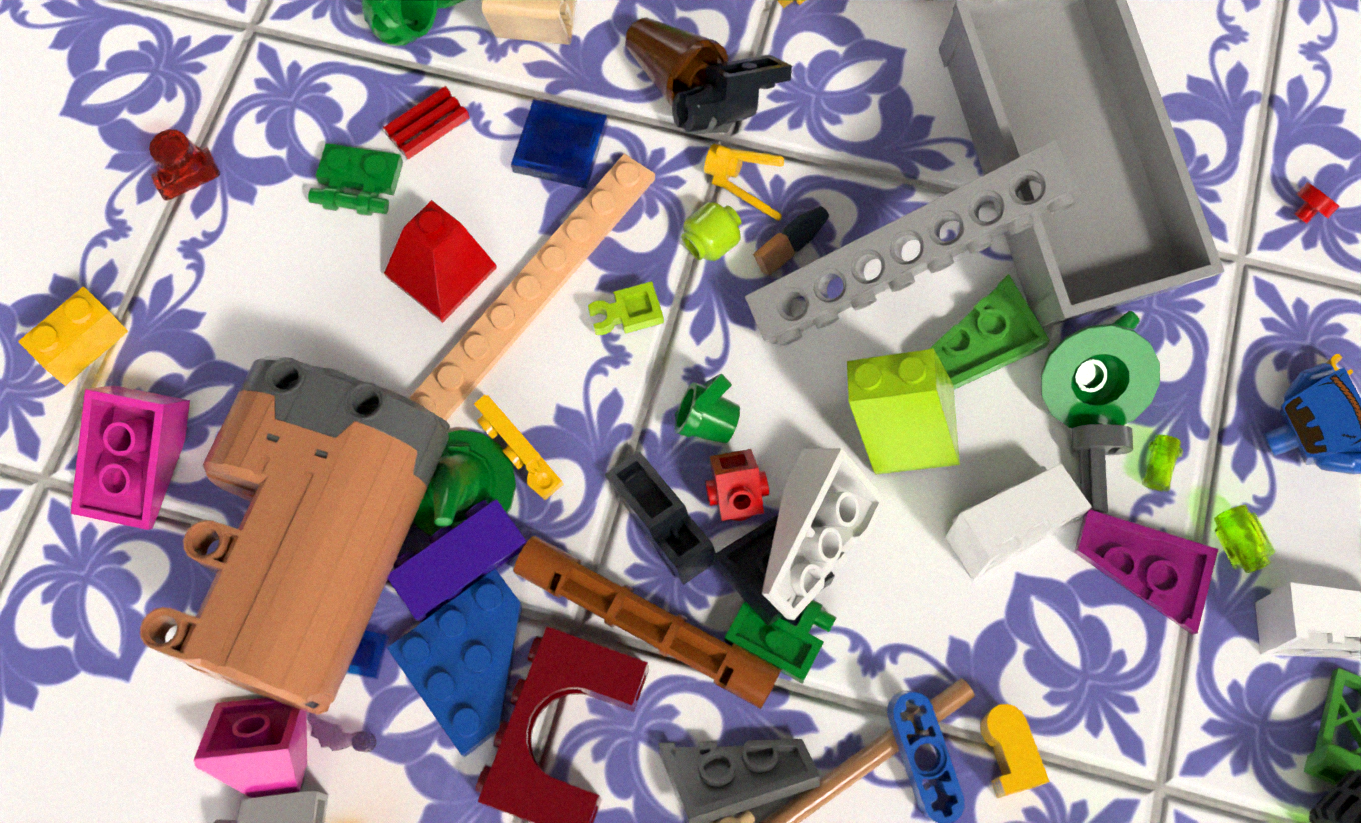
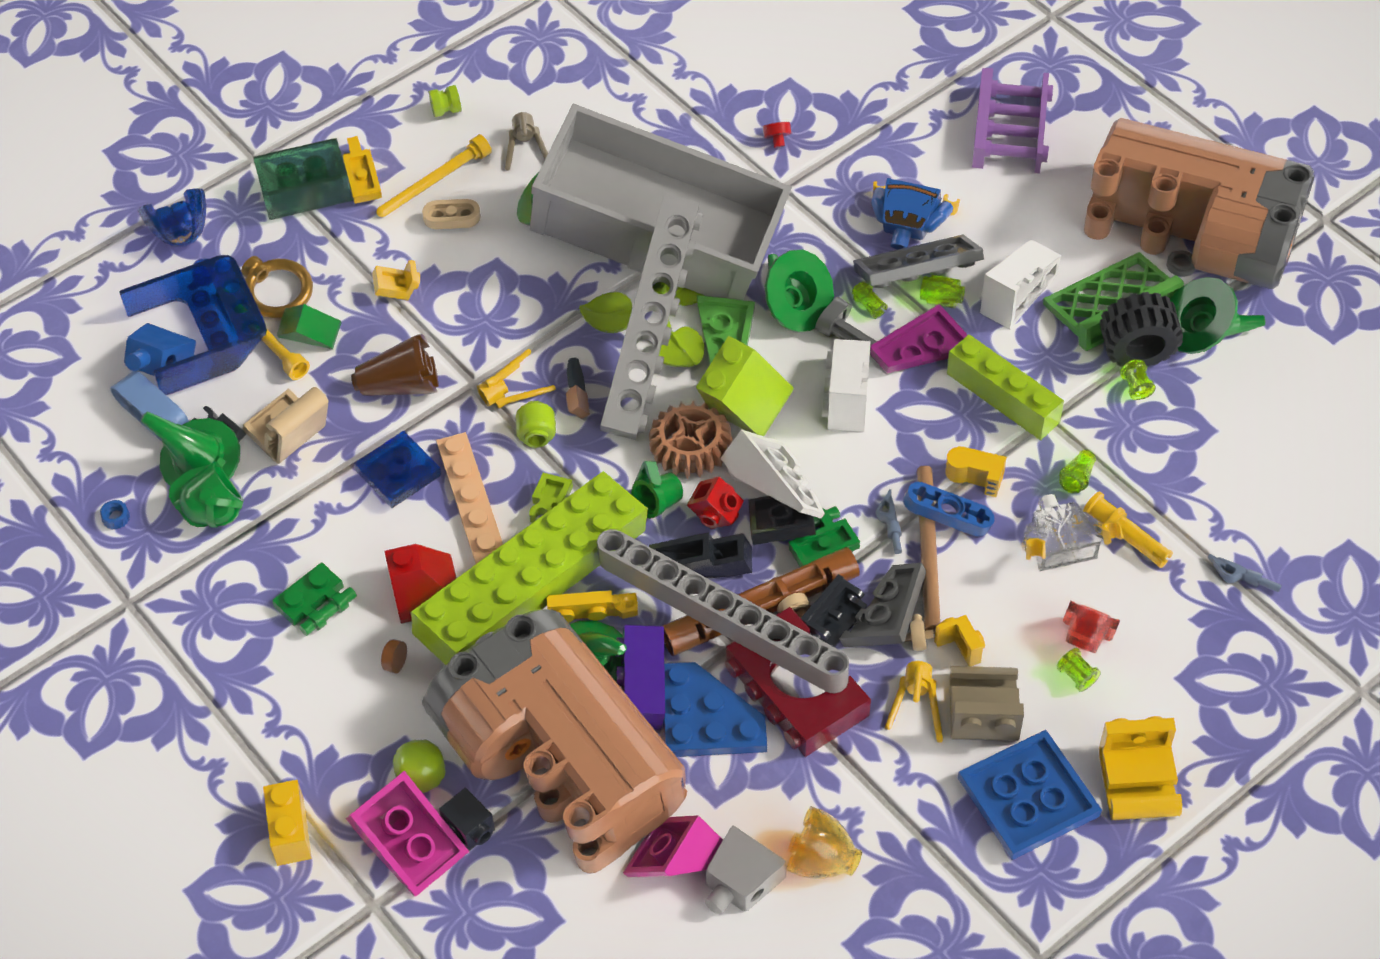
camera: 55 degrees left, 15 degrees down
(176, 502) = (468, 819): none -> black brick
(180, 164) = (208, 698): clear red piece -> none
(211, 405) = (421, 762): none -> lime hair
(330, 297) = (394, 656): none -> dark orange tile
(337, 739) = (714, 799): clear purple piece -> none
(422, 119) = (308, 515): red tile -> none
(505, 354) = (527, 568): none -> lime brick
(581, 612) = (728, 622): none -> light grey beam
(663, 664) = (797, 602): none -> tan tile
(684, 714) = (834, 611): none -> black hinge
(728, 94) = (451, 356): black plate -> none
(794, 394) = (693, 430): none -> nougat gear
(869, 693) = (890, 519): none -> sand blue hand
(927, 306) = (612, 313): none -> lime plant
(1159, 710) = (1005, 387): none -> lime brick
(1263, 484) = (916, 260): none -> dark grey plate

